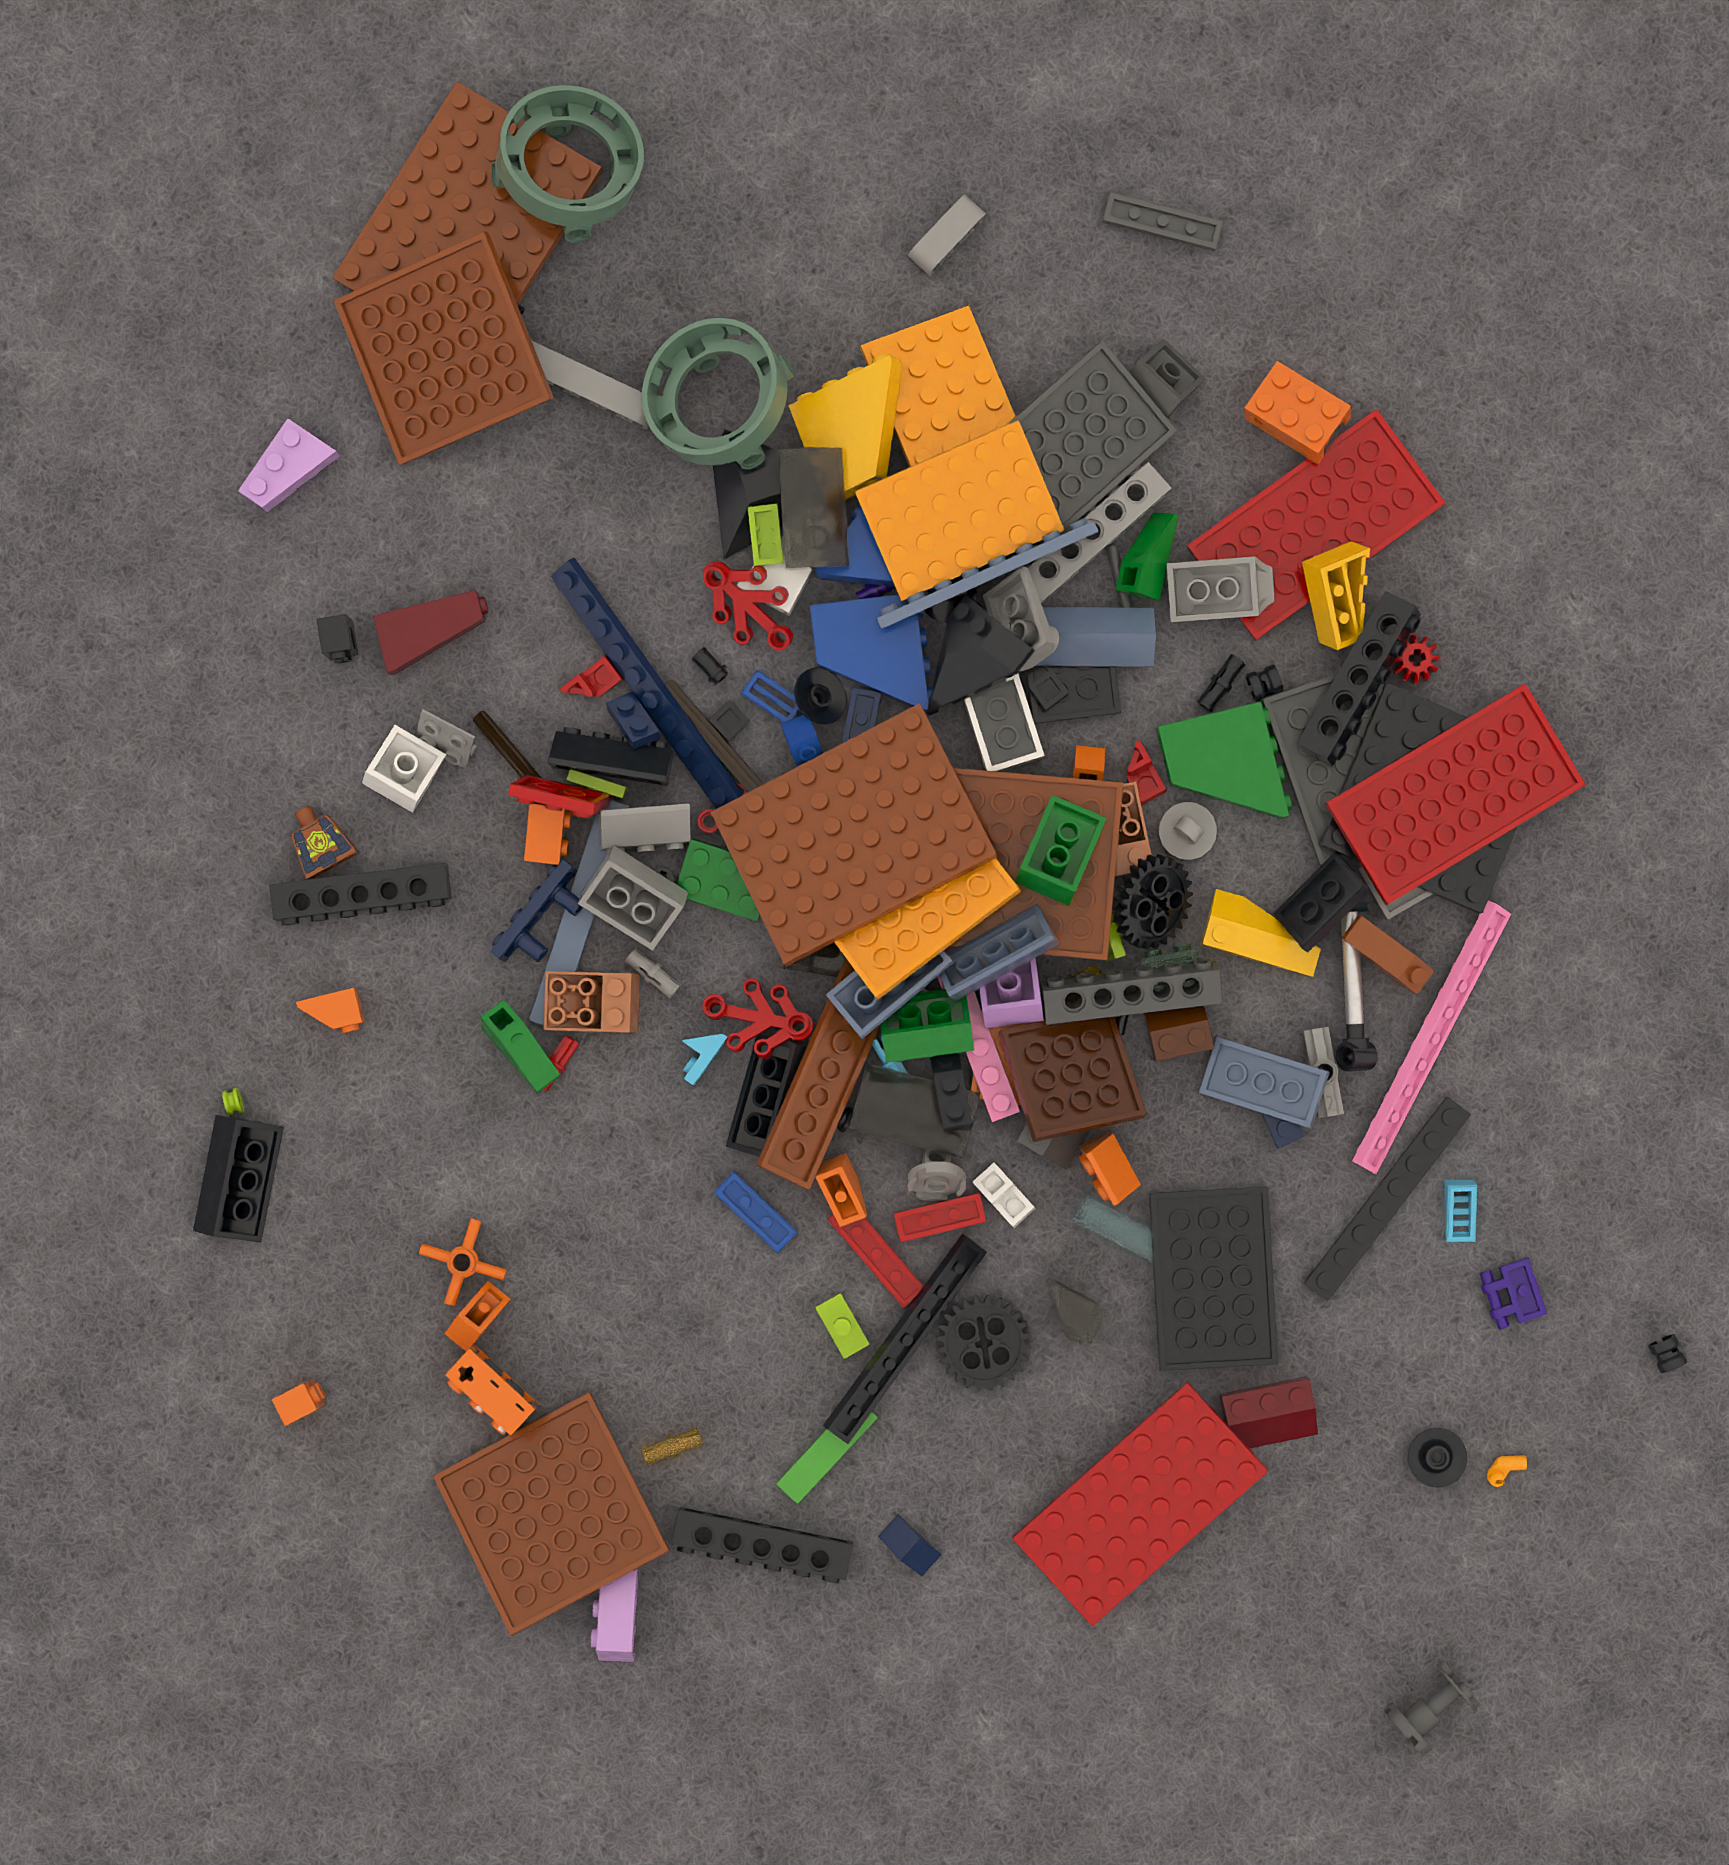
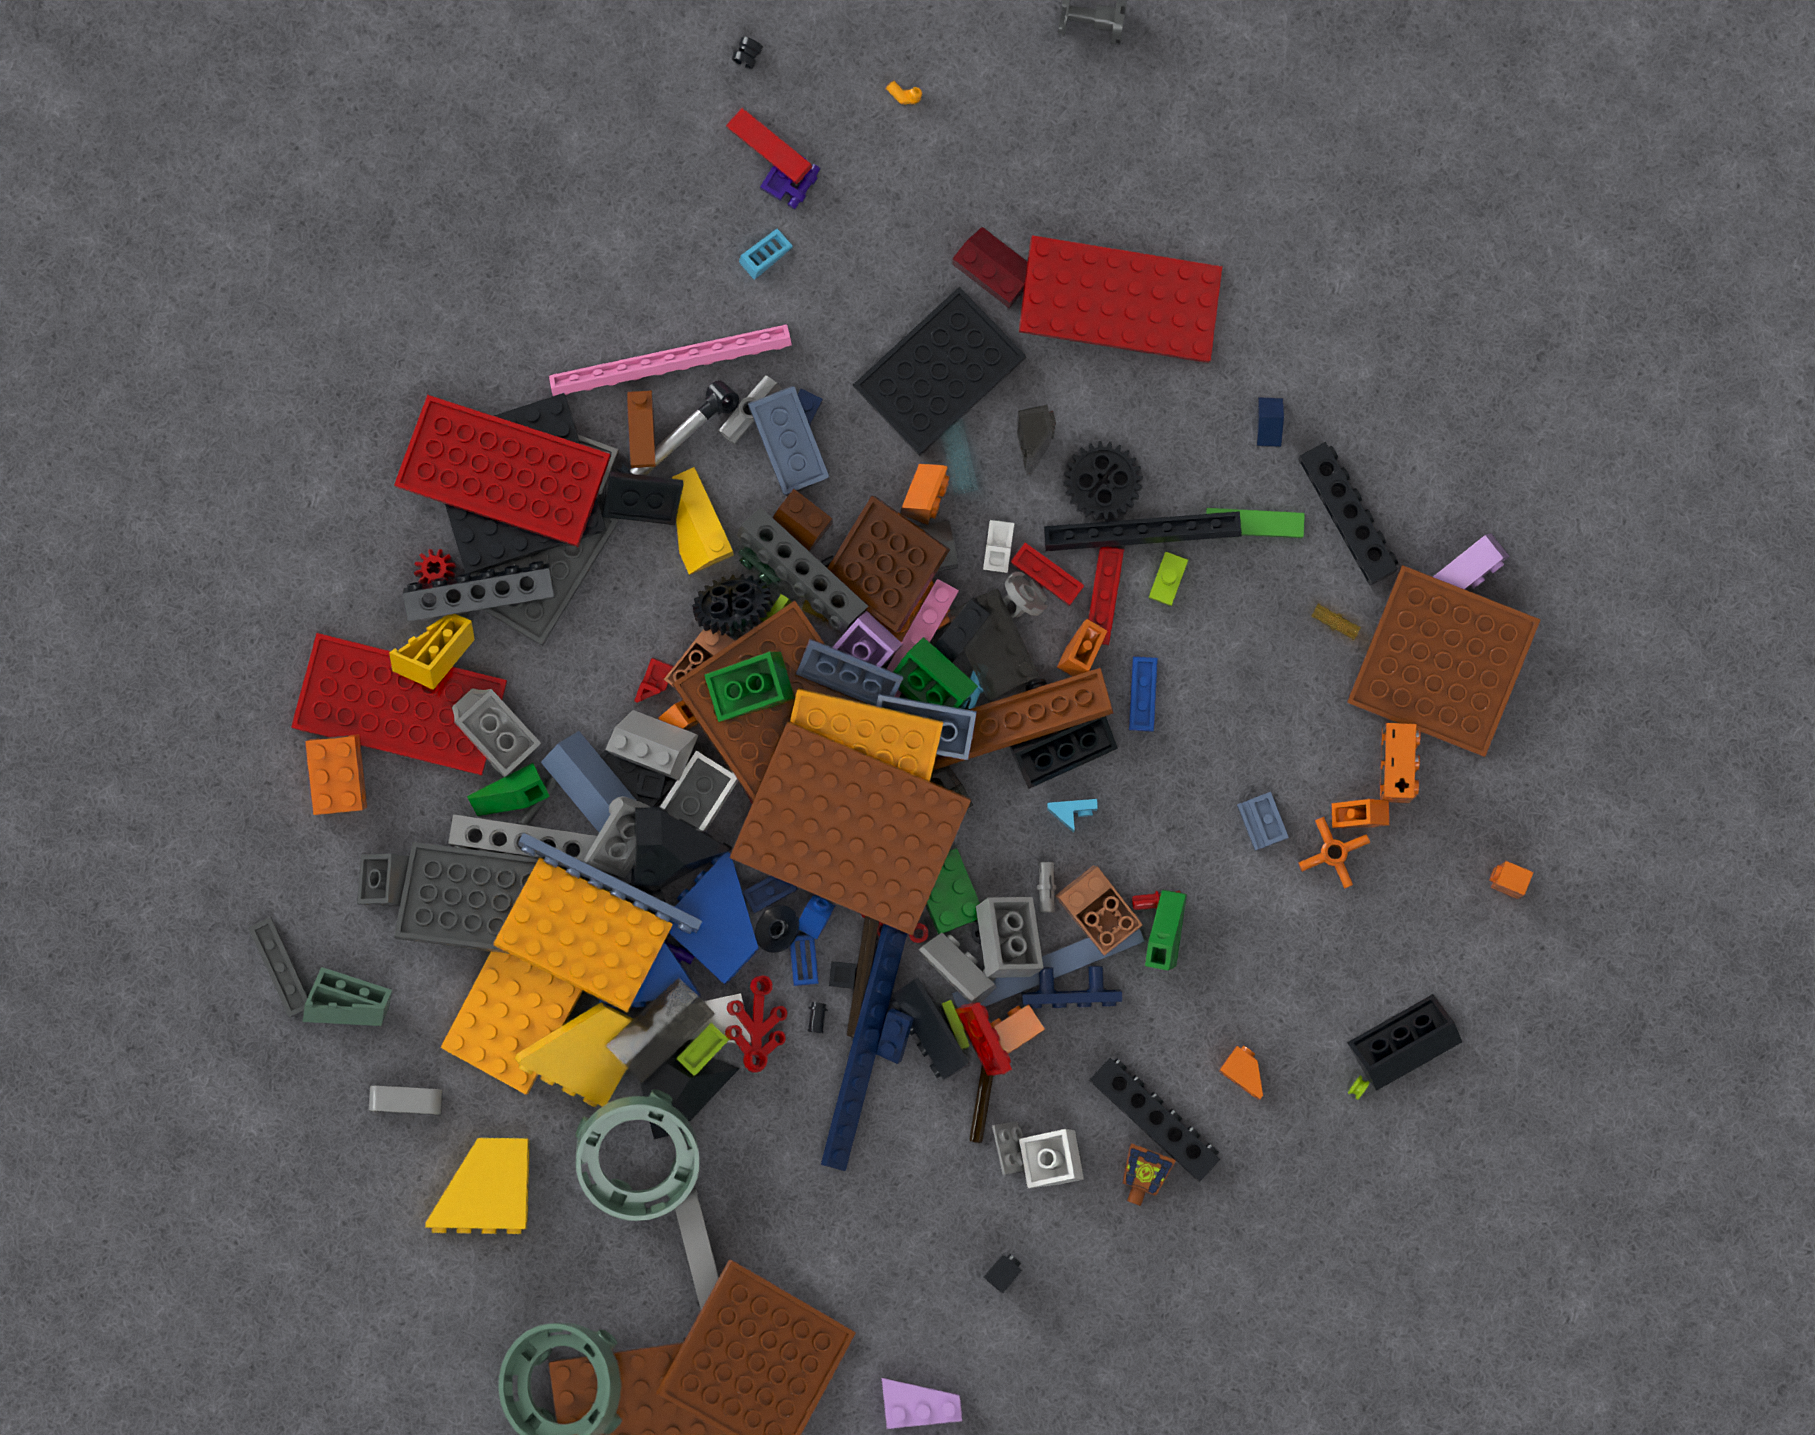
camera: 130 degrees left, 5 degrees down
(422, 629) = (949, 1224): dark red slope -> none
(546, 1221) = (1262, 821): none -> sand blue plate
(595, 680) = (889, 1085): red slope -> none
(762, 1019) = (1016, 791): red plant -> none
(803, 242) = (487, 1190): none -> yellow slope
(1081, 252) = (346, 1000): none -> sand green wedge
(1083, 720) = (652, 744): none -> light grey slope
(1187, 831) = (667, 623): light grey tile -> none
(1221, 683) = (553, 680): black pin -> none
(1227, 759) = (599, 635): green slope -> none
(1264, 682) = (529, 652): black wheel -> none
(1387, 1198) = (796, 305): black plate -> none
(1452, 1460) = (937, 129): black dish -> none
(1559, 1298) = (769, 146): none -> red tile

